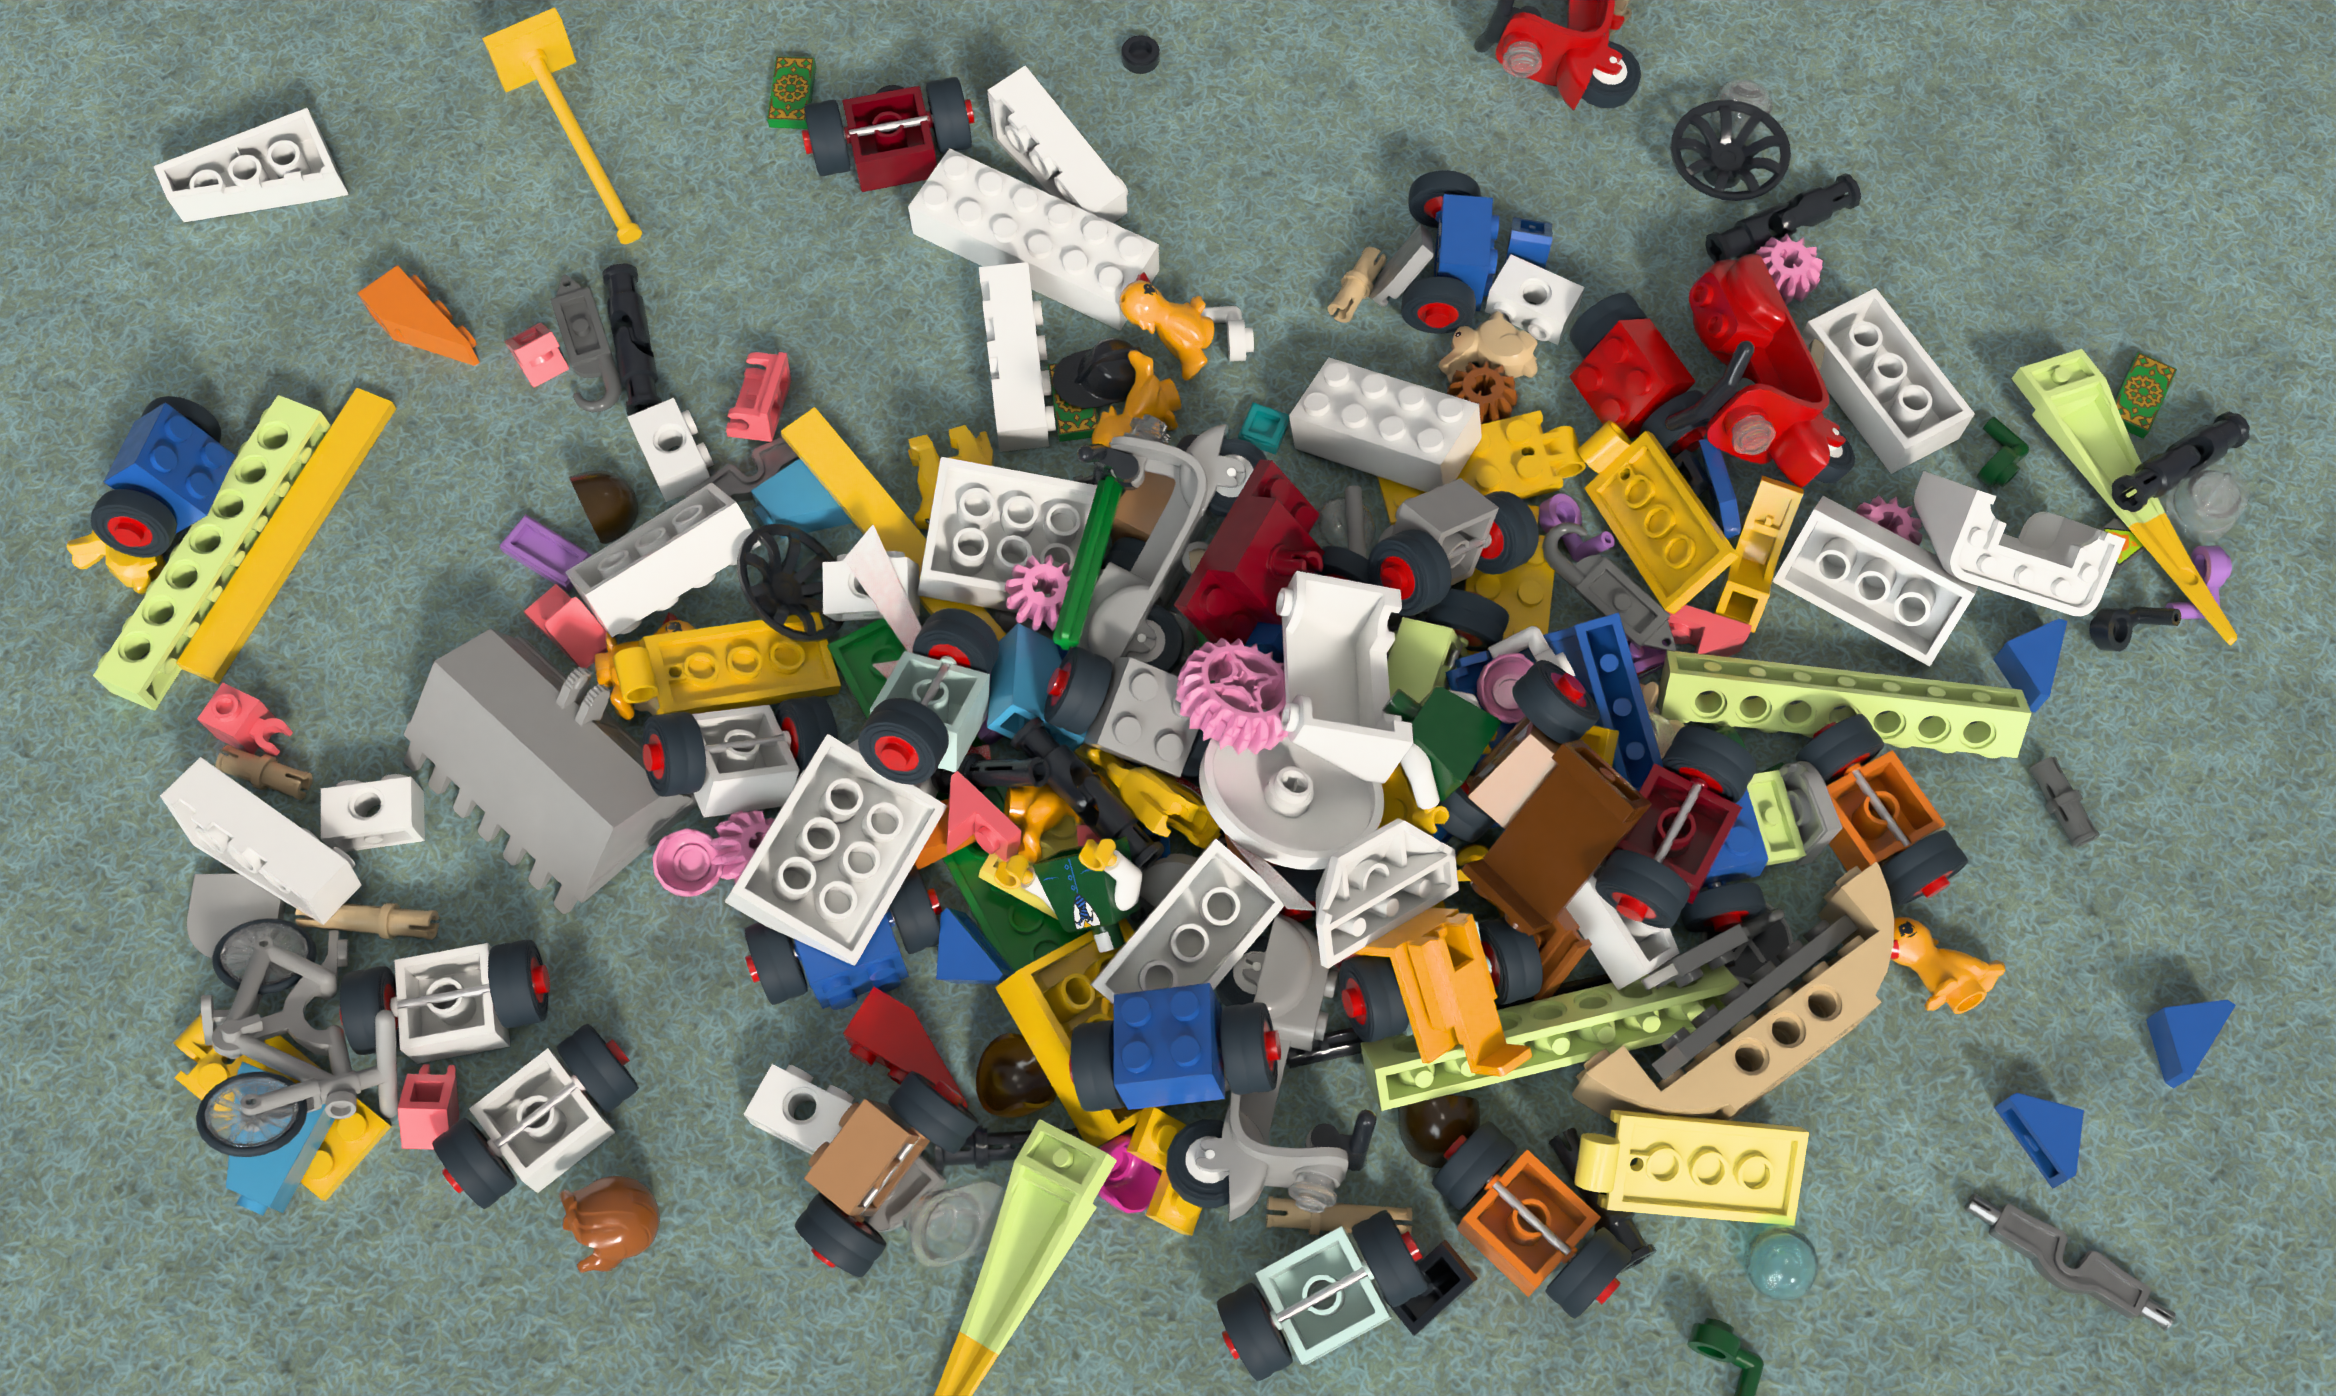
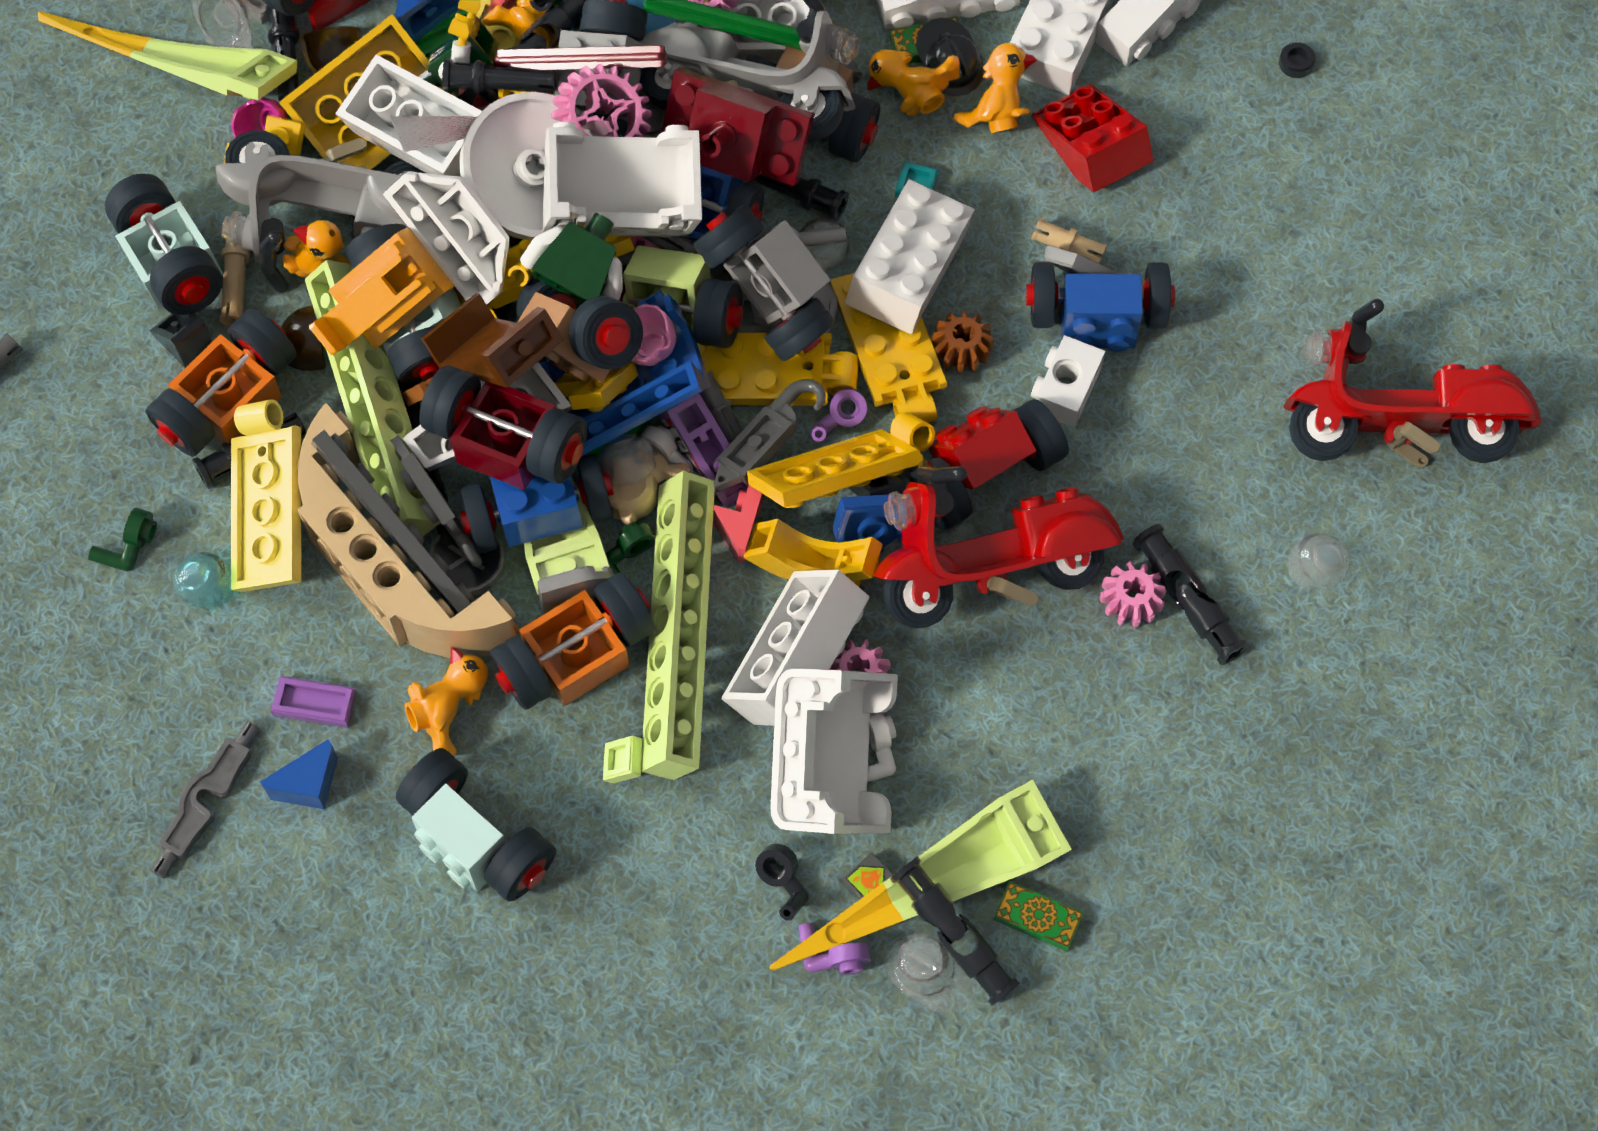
camera: 85 degrees right, 0 degrees up
(1154, 716) = (577, 57): none -> axle
(1157, 843) = (481, 77): none -> black pin
(1173, 1050) = (318, 107): brick -> none
(1224, 245) = (1095, 137): none -> red slope
(1238, 337) = (999, 149): white plate -> none
(1344, 1088) = (312, 246): none -> light orange animal
(1496, 342) = (1015, 352): tan animal -> none
(1530, 241) = (1134, 376): blue slope -> none
(1534, 639) = (664, 357): white plate -> none
(1729, 159) = (1249, 539): black wheel -> none
(1887, 381) = (1013, 669): white brick -> none
(1935, 1128) = (313, 701): none -> medium lavender tile
(1998, 778) = (622, 759): none -> yellowish green tile
(2002, 465) = (939, 777): dark green plate -> none
(2032, 660) = (736, 793): blue slope -> none
(2064, 802) = (606, 816): dark grey pin -> none
(2126, 945) = (464, 838): none -> brick
(2185, 1035) = (392, 896): blue slope -> none

